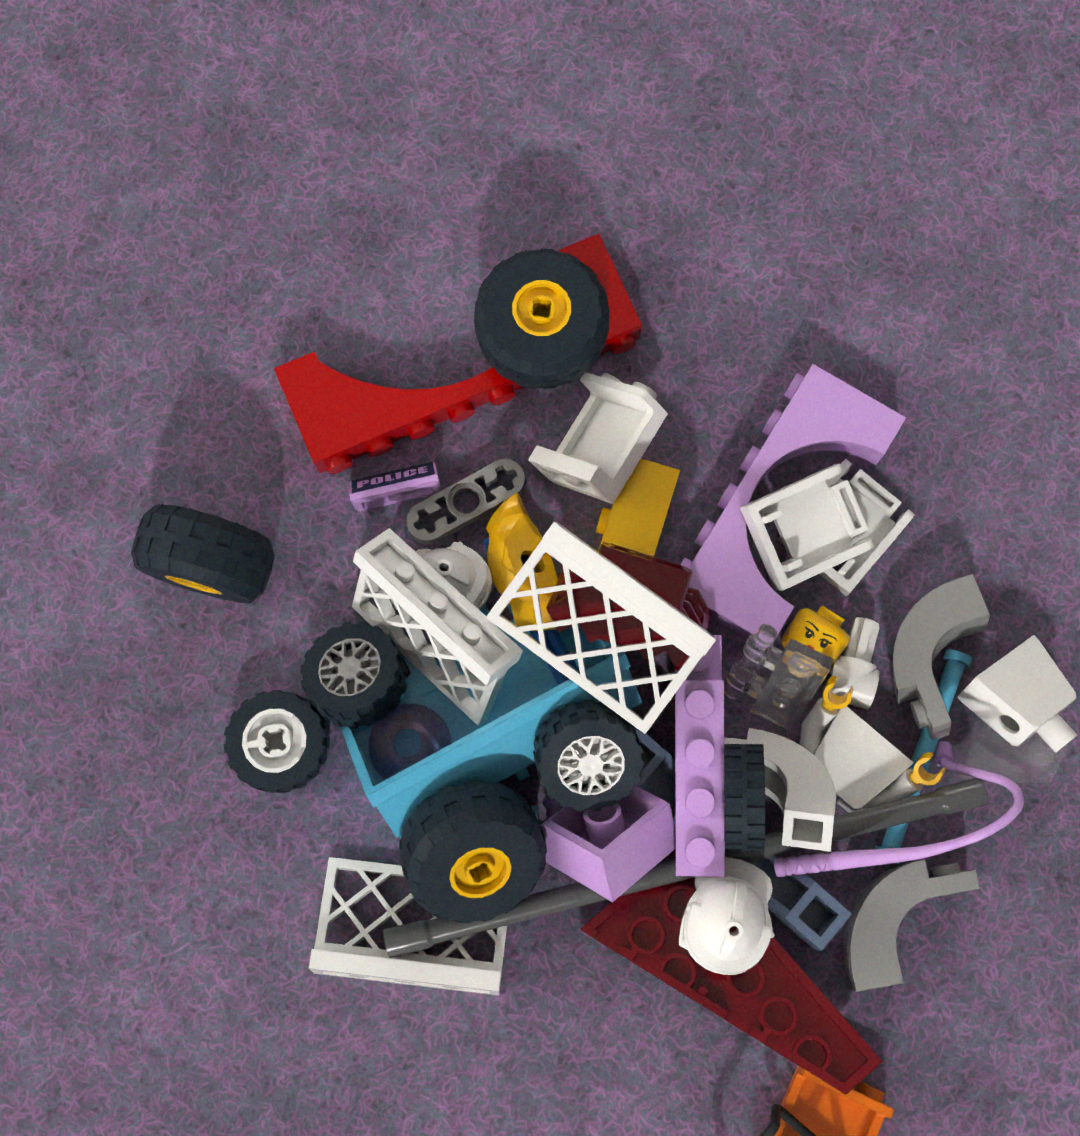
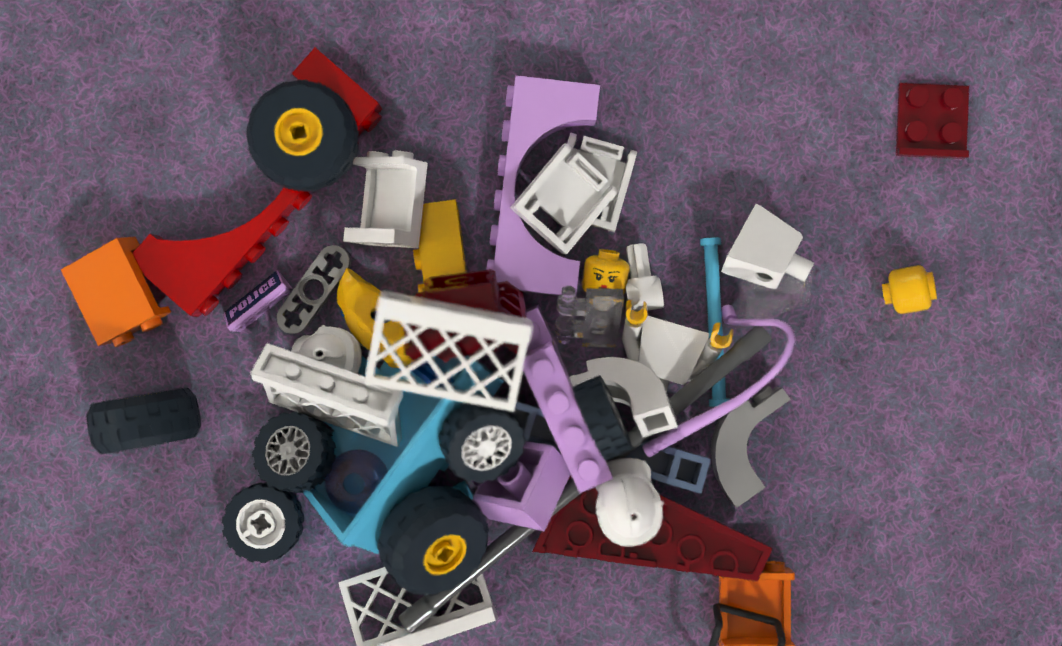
camera: 30 degrees left, 10 degrees up
(240, 400) = (114, 293): none -> orange panel
(933, 623) = (679, 233): light grey arch -> none

